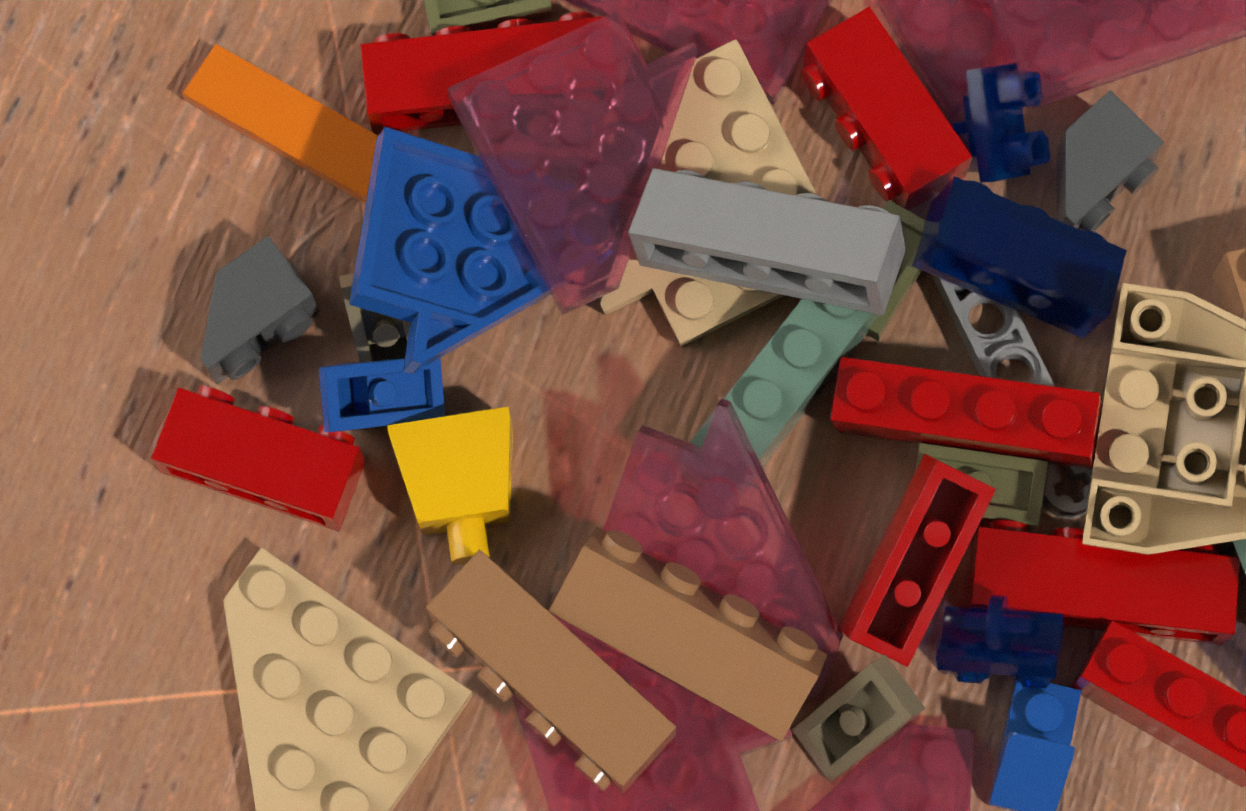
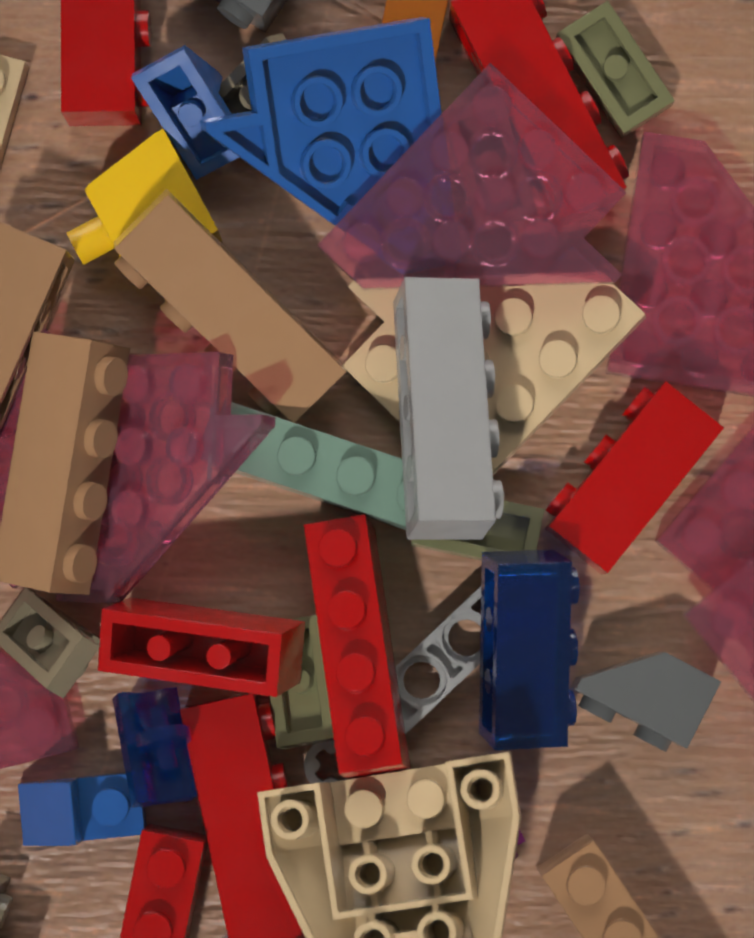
camera: 70 degrees right, 10 degrees up
(586, 421) = (227, 306): none -> medium nougat brick
(997, 122) = (654, 585): clear blue hips -> none

